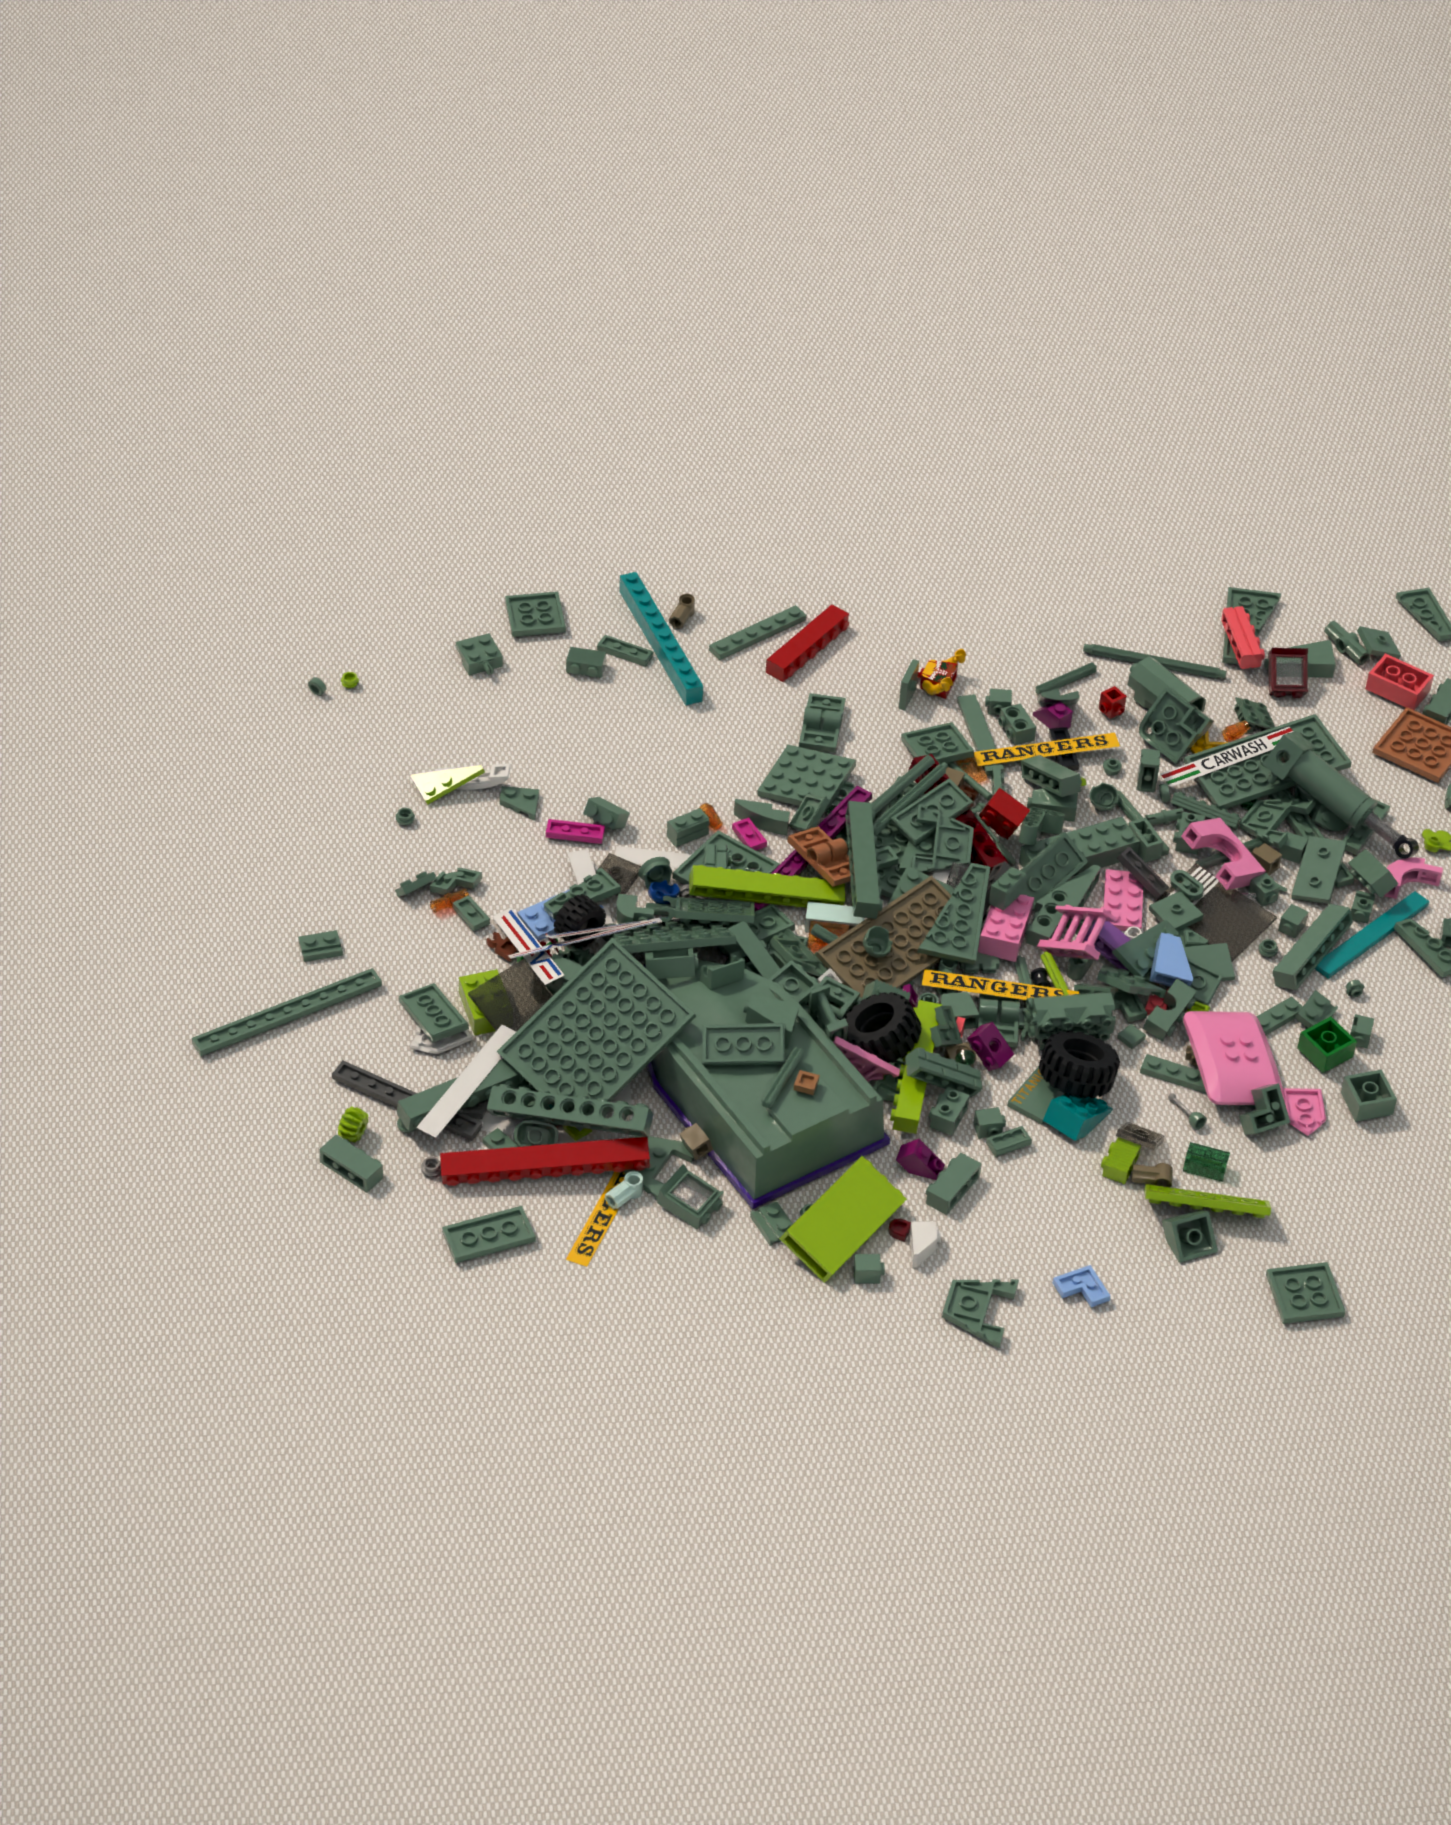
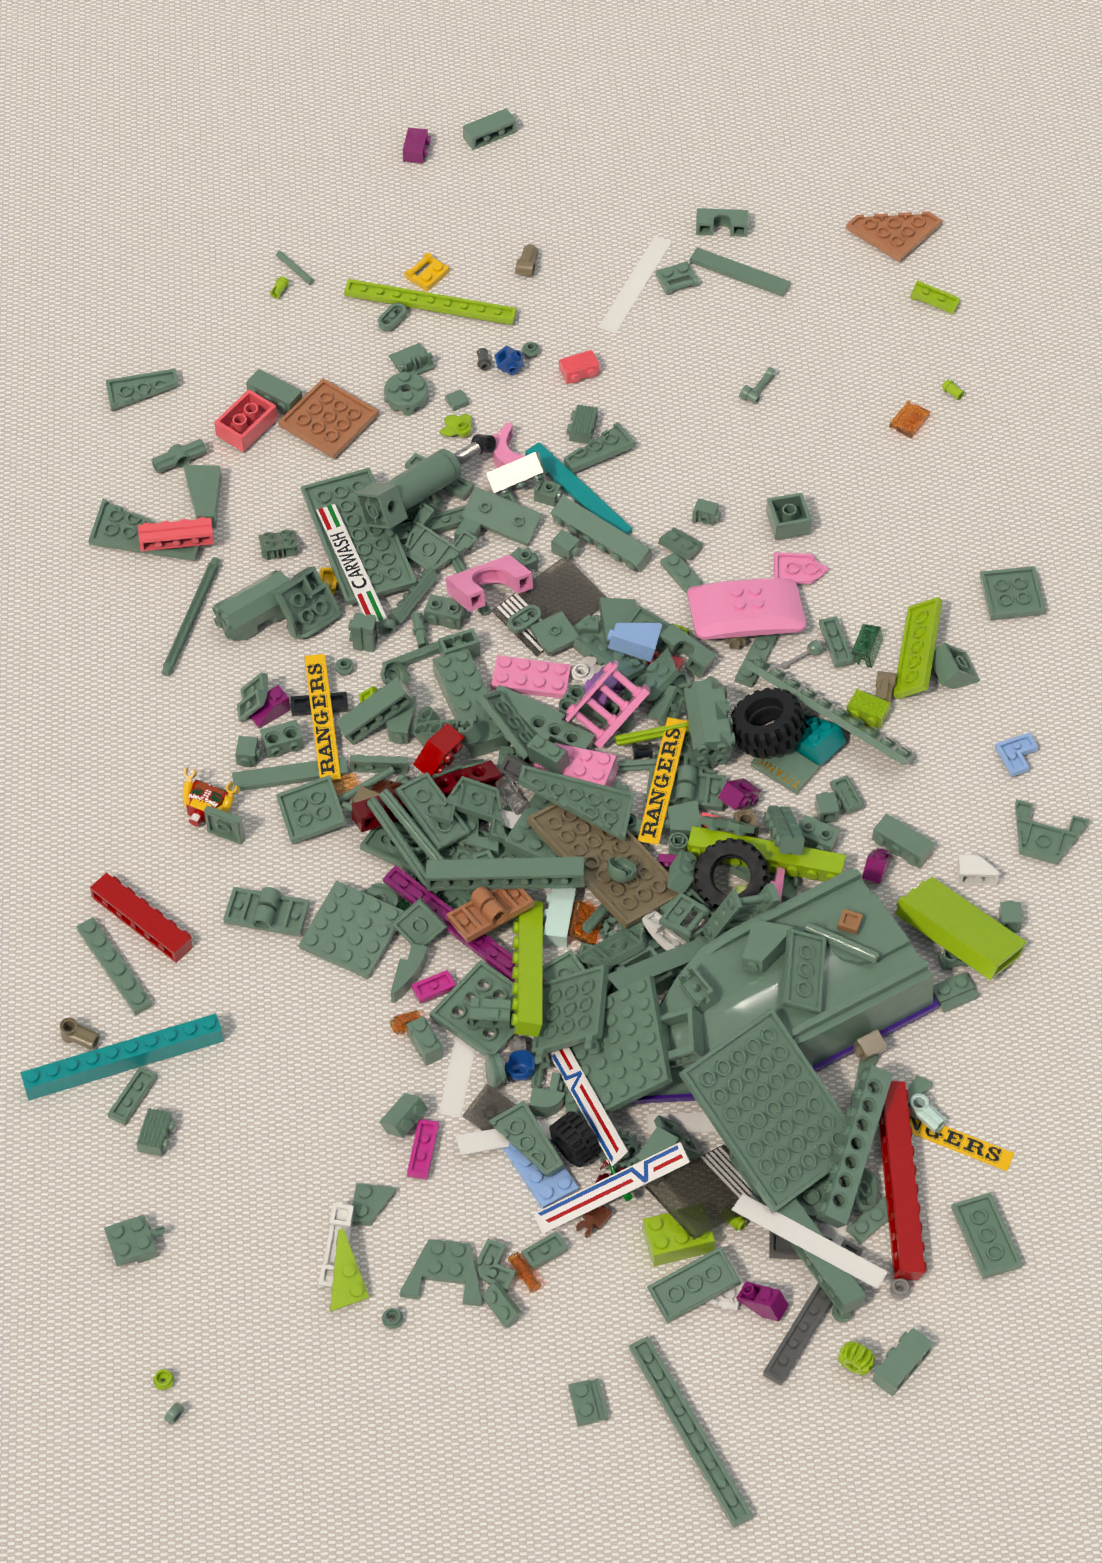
camera: 85 degrees left, 10 degrees up
(415, 1061) = (763, 1300): none -> magenta slope
(459, 851) = (444, 1263): none -> sand green wing
(535, 614) = (66, 1183): sand green plate -> none
(584, 938) = (619, 1117): white sticker -> none
(690, 1197) = (935, 1054): sand green window -> none
(795, 981) = (682, 941): sand green plate -> none
(899, 1229) = (957, 887): dark red tile -> none
(965, 1057) = (759, 813): clear green plate -> none
(1066, 678) = (211, 693): sand green axle -> none
(1103, 1118) = (825, 708): none -> sand green plate
(1112, 702) = (259, 653): red brick -> none
(1140, 1135) = (844, 689): clear smoke plate -> none
(1143, 873) = (507, 651): dark grey plate -> none
(1209, 1135) = (835, 642): none -> sand green plate
(1235, 731) = (304, 558): clear orange cone -> none
(1268, 858) = (482, 554): dark tan brick -> none
(1268, 948) = (597, 570): sand green plate -> none
(1270, 1110) = (815, 590): sand green brick -> none
(1288, 672) = (230, 504): dark red window -> none
(1327, 1044) = (727, 538): green brick -> none
(1354, 988) = (649, 511): sand green plate -> none
(1378, 642) = (183, 430): sand green plate -> none

